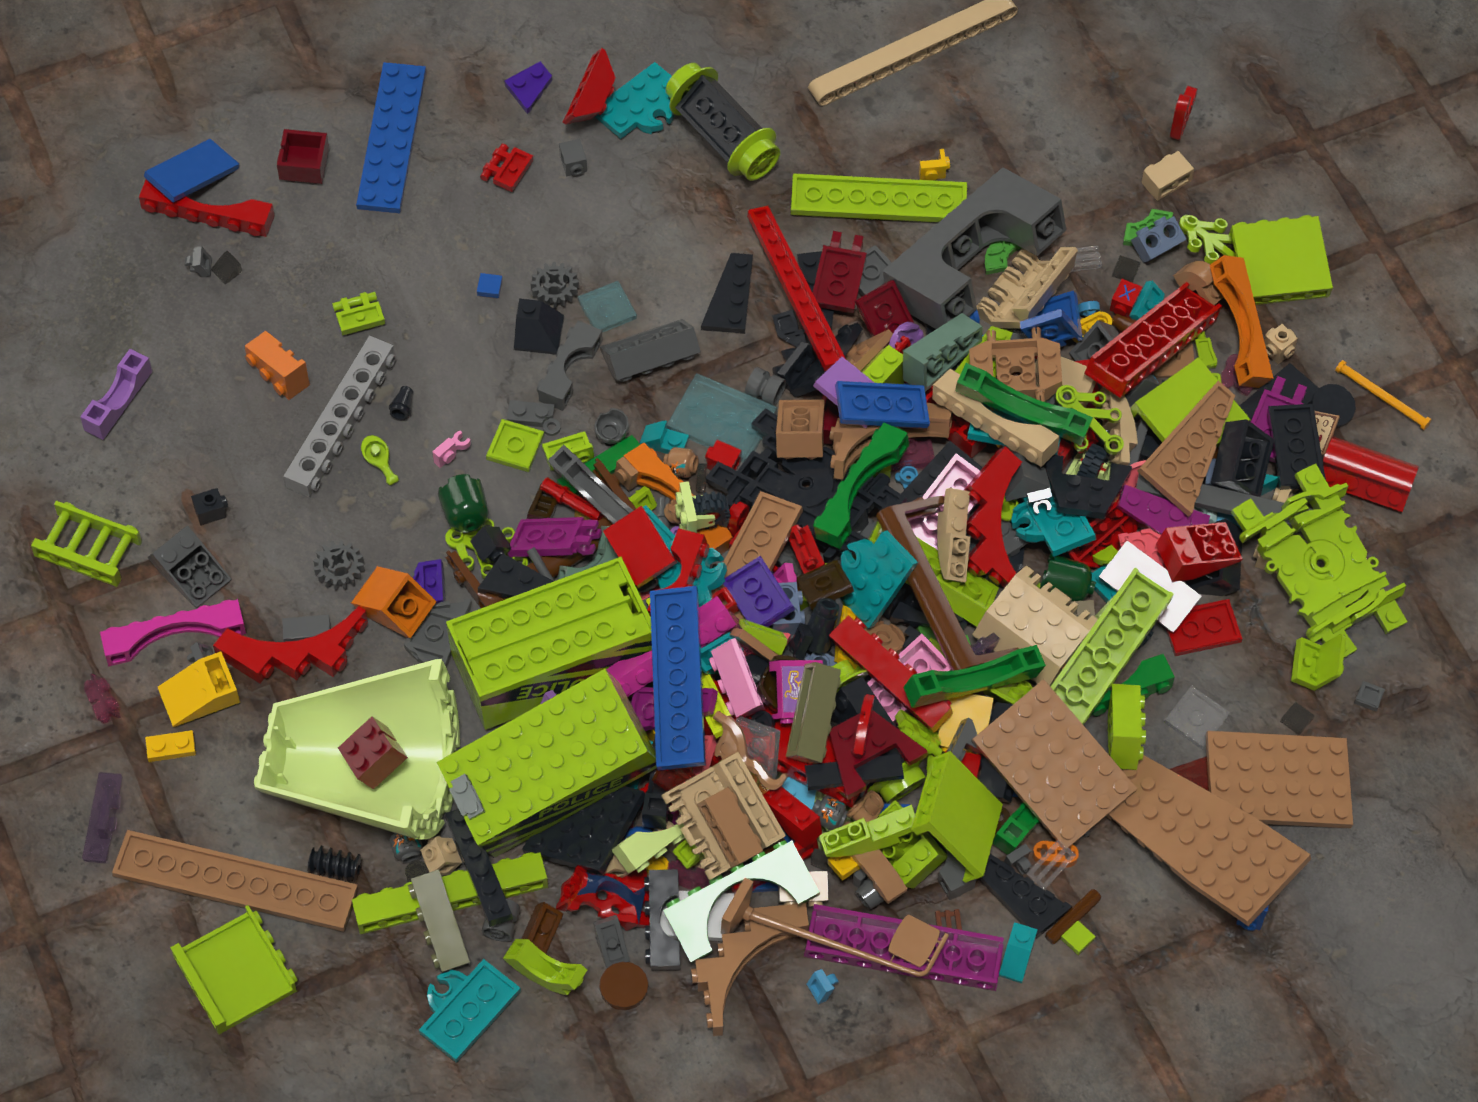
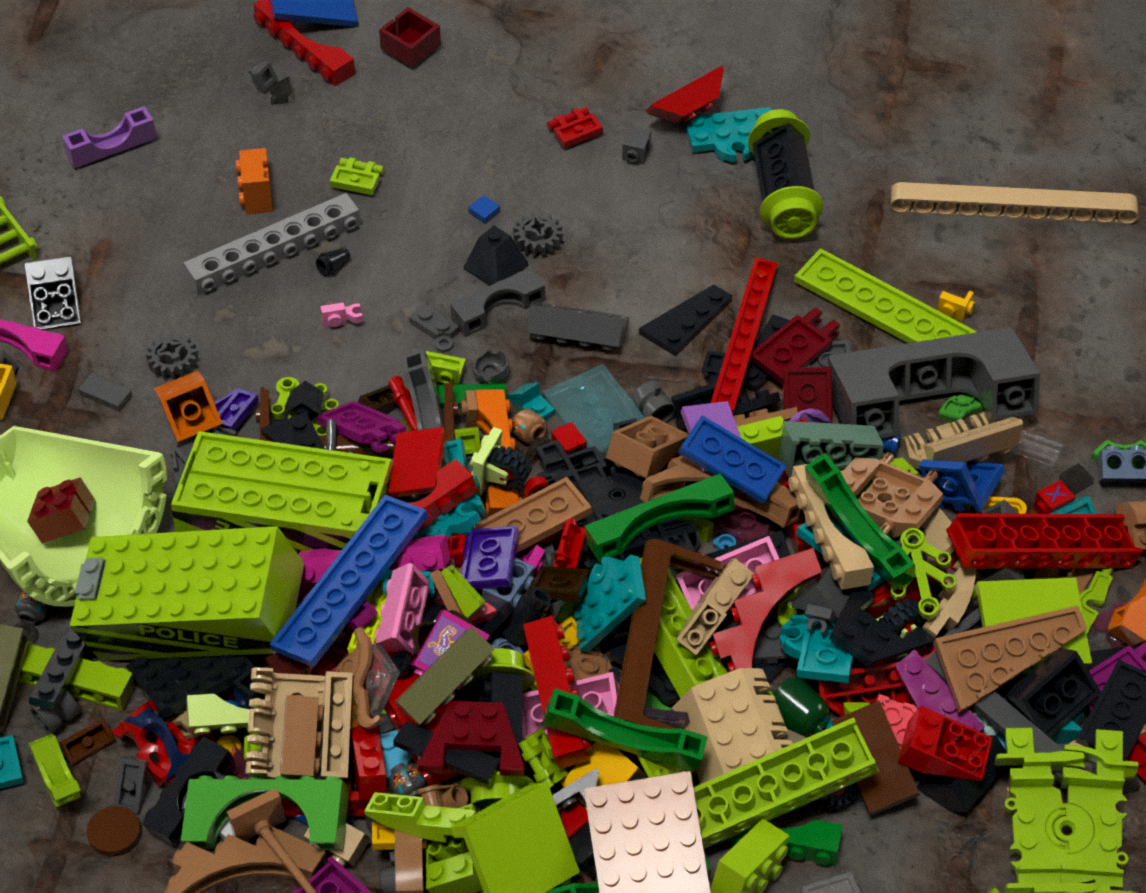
camera: 35 degrees right, 10 degrees down
(209, 506) = (108, 257): black brick -> none
(293, 658) = (74, 407): red arch -> none
(377, 454) = (277, 288): lime piece -> none
(391, 138) = (498, 61): blue plate -> none
(441, 855) = (49, 628): tan brick -> none
(464, 503) = (310, 357): dark green cylinder -> none
(515, 445) = (399, 339): lime tile -> none
(529, 85) = (648, 75): dark purple wing -> none
(607, 307) = (570, 274): clear light blue tile -> none
(863, 726) = (477, 708): red tile -> none
(1088, 308) = (1011, 490): dark azure tile -> none
(1206, 628) = (909, 830): red tile -> none

